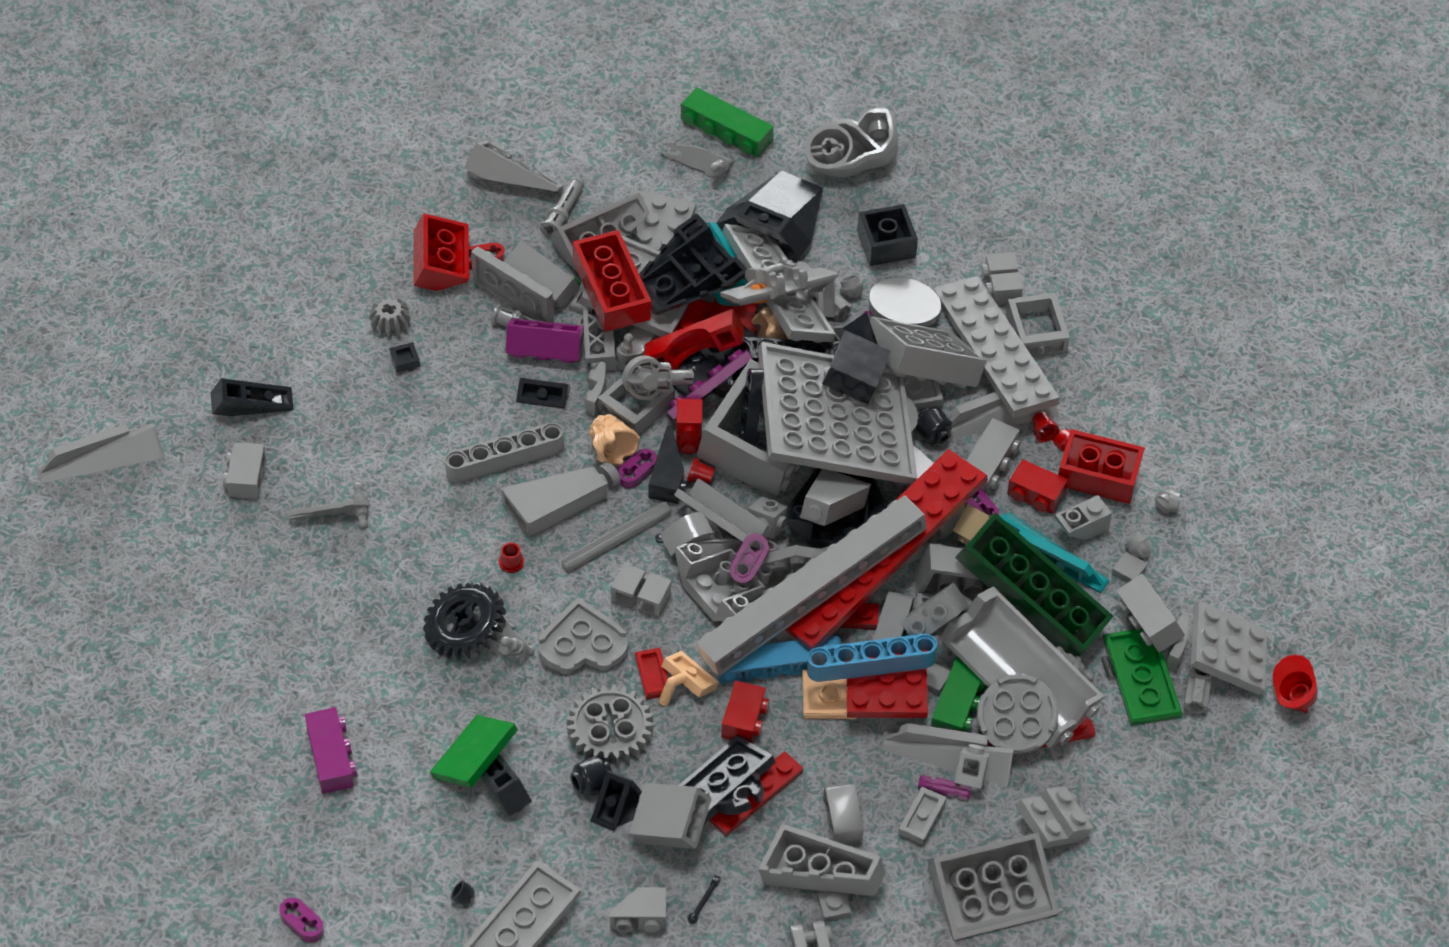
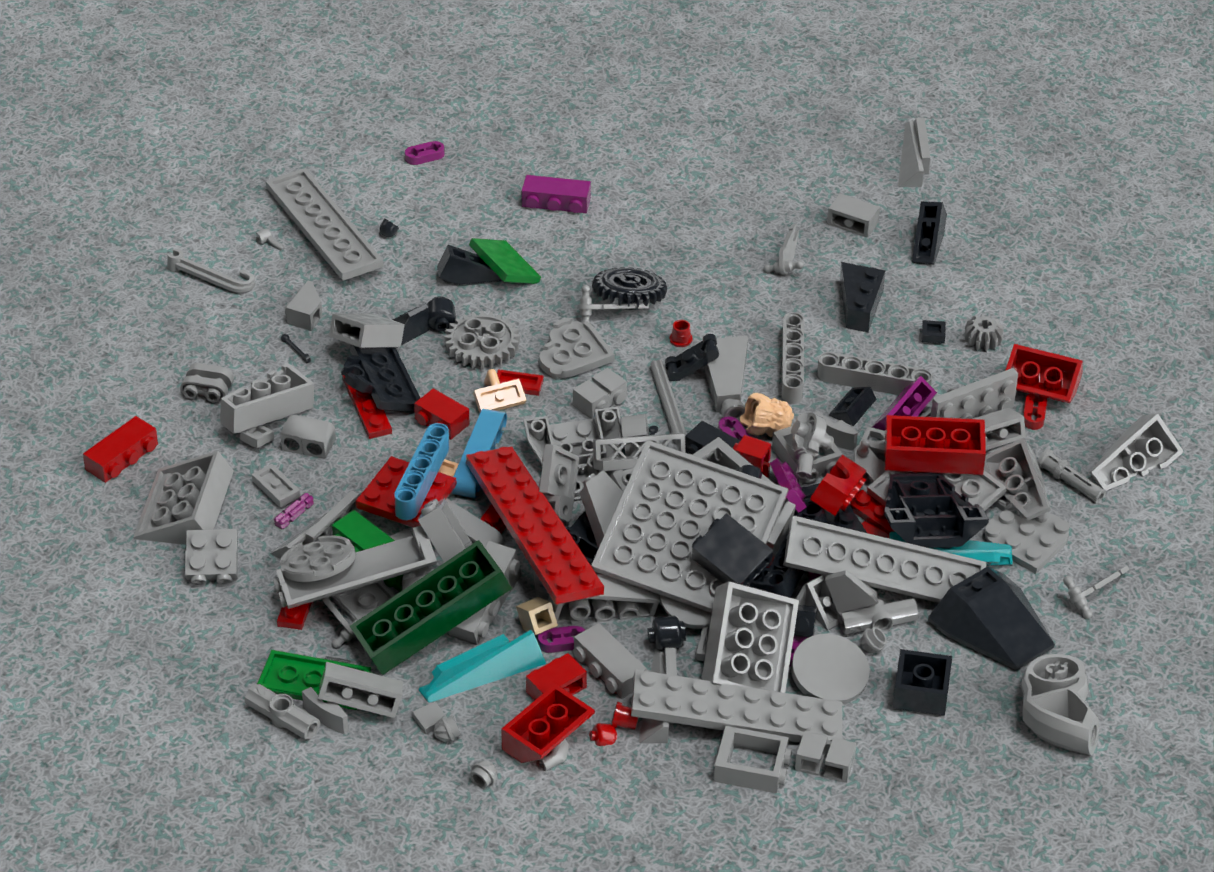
camera: 115 degrees right, 10 degrees down
(383, 423) = (860, 294): none -> black wedge
(498, 381) = (865, 372): none -> light grey beam
(557, 523) = (692, 358): none -> black plate
(727, 122) = (1137, 622): green brick -> none
(749, 557) = (579, 443): magenta plate -> none
(766, 285) = (855, 529): light grey piece -> none
(811, 585) = (518, 460): light grey brick -> none
(970, 775) = (292, 521): light grey brick -> none
(1085, 519) = (495, 694): light grey slope -> none
(1229, 647) = (290, 733): light grey plate -> none
(1295, 683) = (220, 770): red piece -> none

